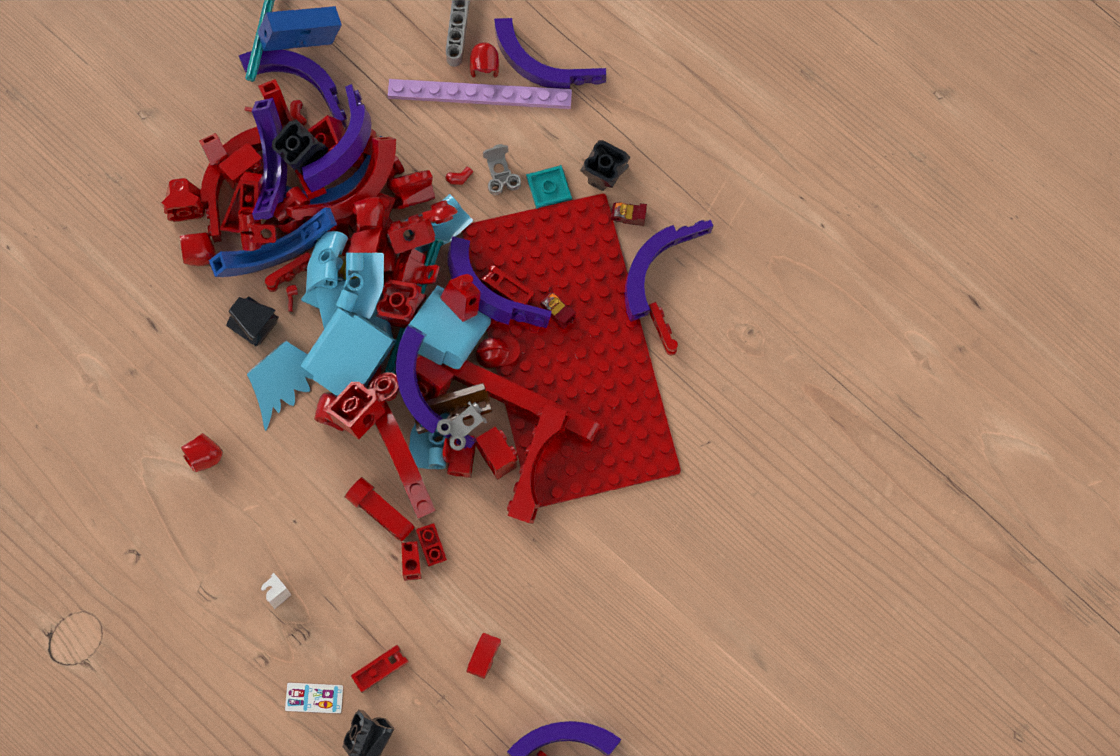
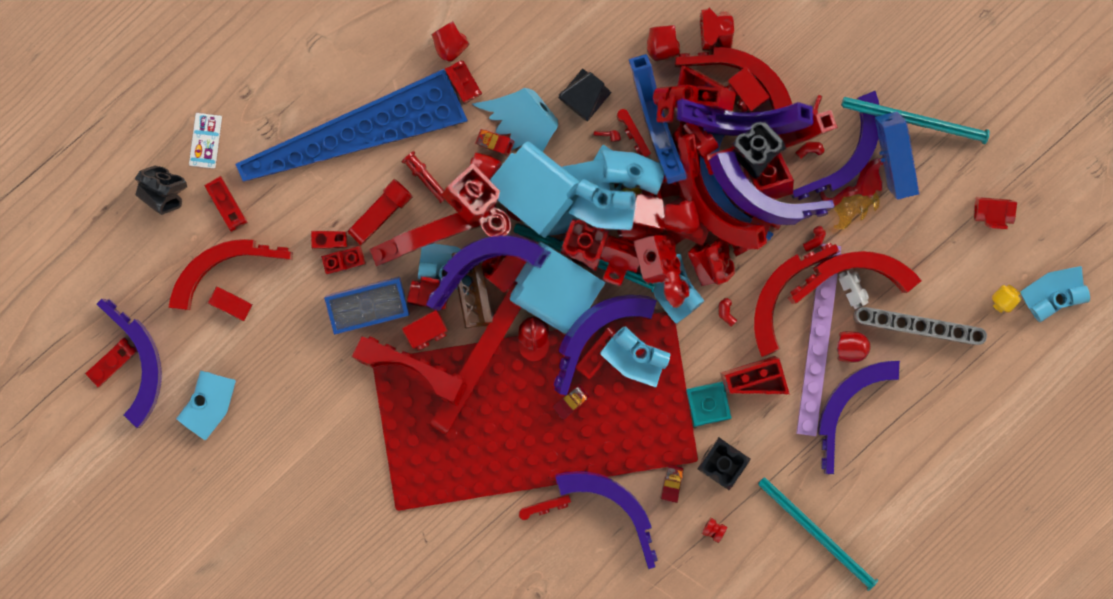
camera: 100 degrees right, 15 degrees up
(213, 149) = (765, 61): red brick -> none
(243, 439) = (463, 81): none -> red hinge
(277, 593) = (307, 110): white hinge -> none
(278, 496) = (402, 114): none -> blue wing
(303, 403) = (495, 142): none -> red leg
(336, 477) = (419, 170): none -> red pin
(343, 68) = (858, 198): none -> piece
(383, 99) = (817, 239): none -> red arm
(406, 34) = (891, 268): none -> red arch
(422, 68) = (858, 294): none -> white hinge
(449, 140) = (770, 292): none -> red arch
(457, 427) = (446, 291): light grey piece -> none
(458, 698) = (194, 272): none -> red arch
(462, 297) = (584, 306): red torso -> none
(475, 514) = (367, 305): none -> clear brick
(497, 156) = (722, 358): light grey piece -> none
(507, 262) = (622, 355): none -> medium azure panel
(519, 135) = (756, 378): none -> red wedge
(578, 660) = (217, 395): none -> medium azure panel
(663, 82) = (817, 533): none -> teal axle
(670, 171) = (714, 530): none -> red wheel

